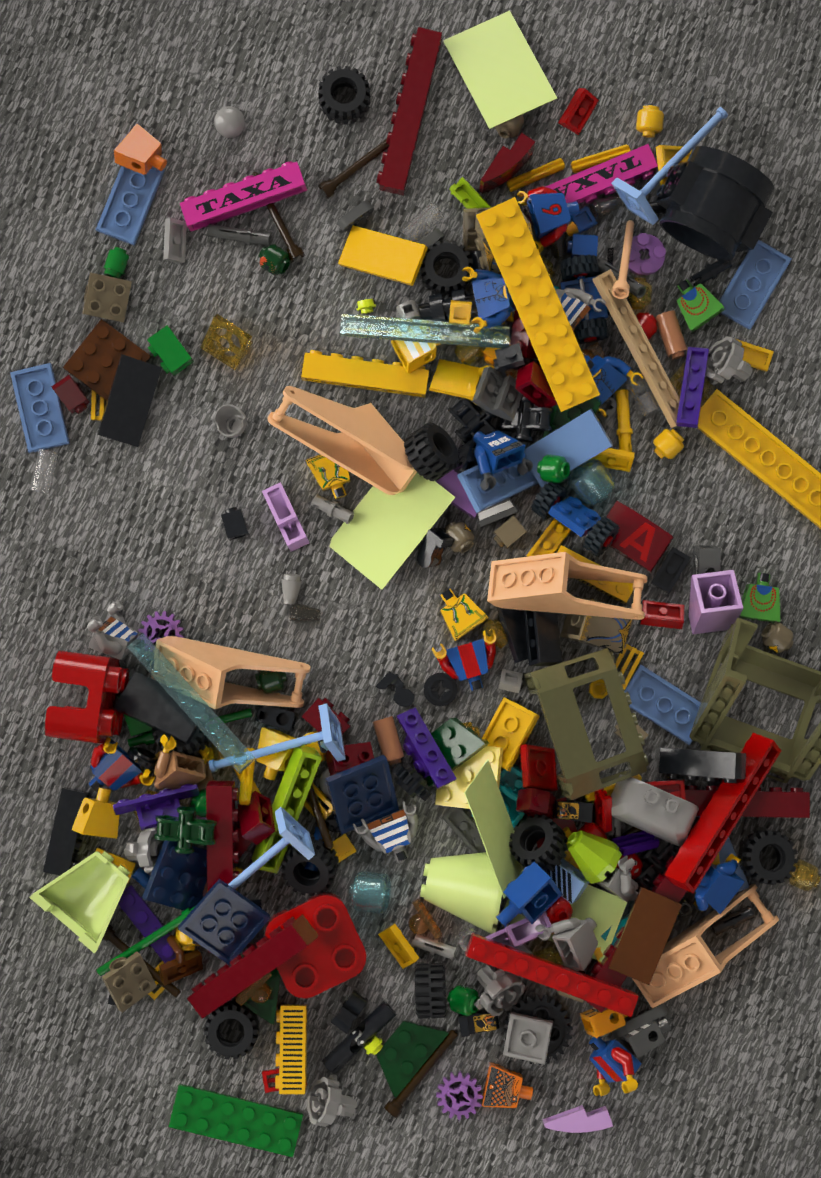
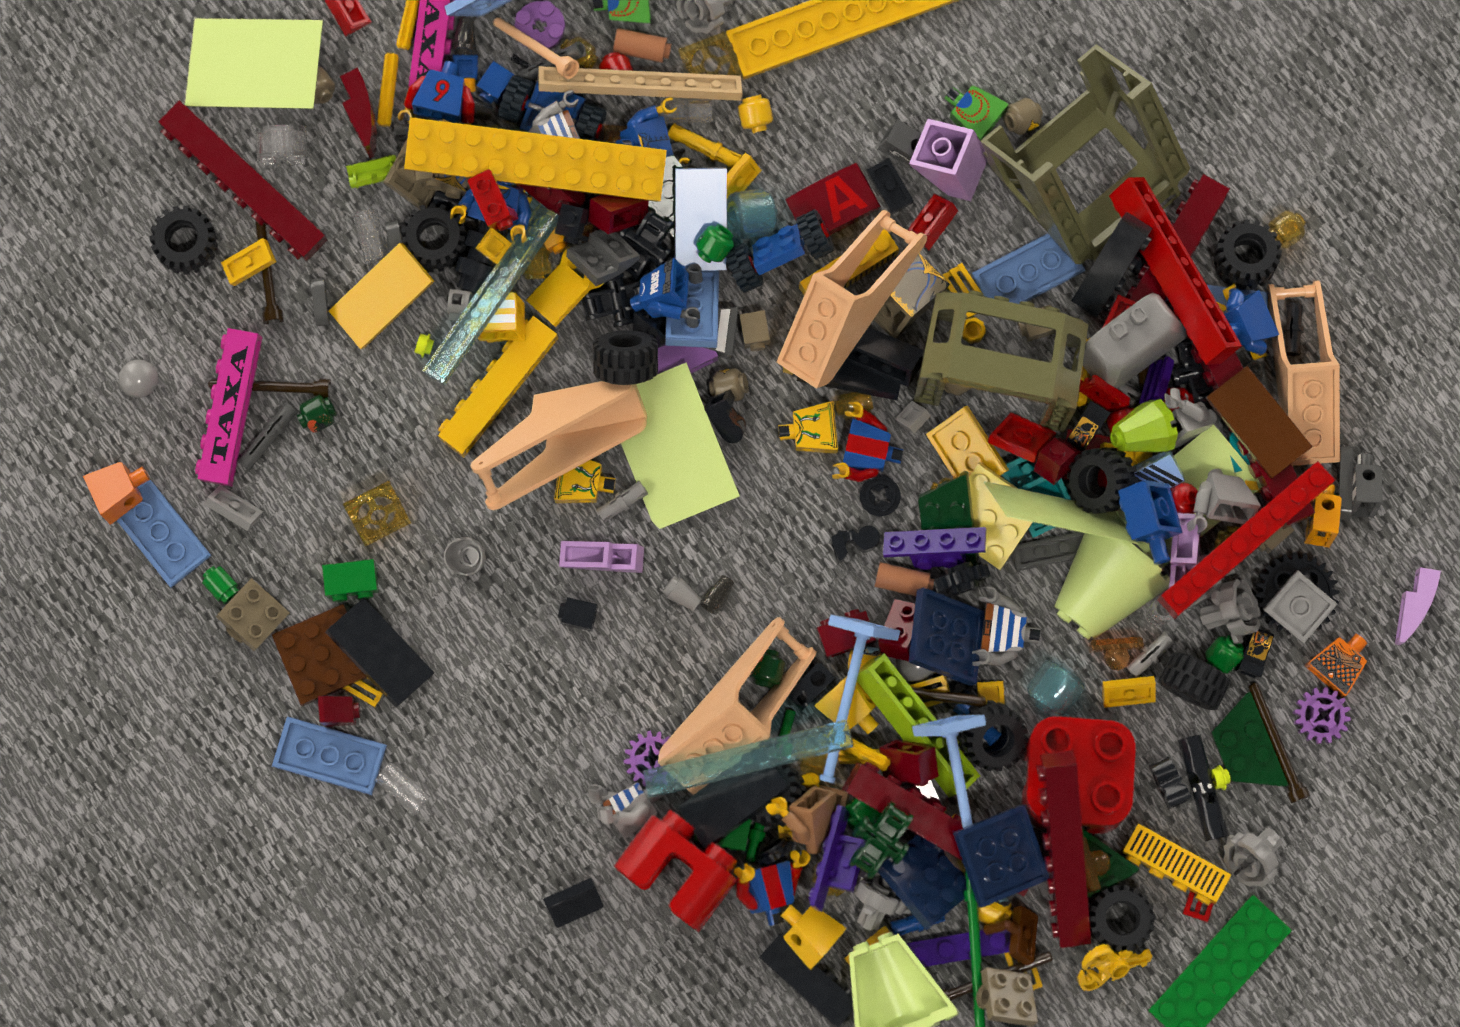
camera: 60 degrees left, 5 degrees down
(31, 636) = (573, 902): none -> black panel
(193, 1039) = (1109, 965): none -> yellow animal
(354, 149) = (248, 262): none -> yellow plate
(451, 122) = (281, 144): none -> clear brick
(488, 290) = (491, 201): none -> red bracket
(550, 539) = (785, 291): yellow tile -> none
(614, 1065) = (1375, 534): torso -> none
(692, 387) = (711, 54): dark purple plate -> none

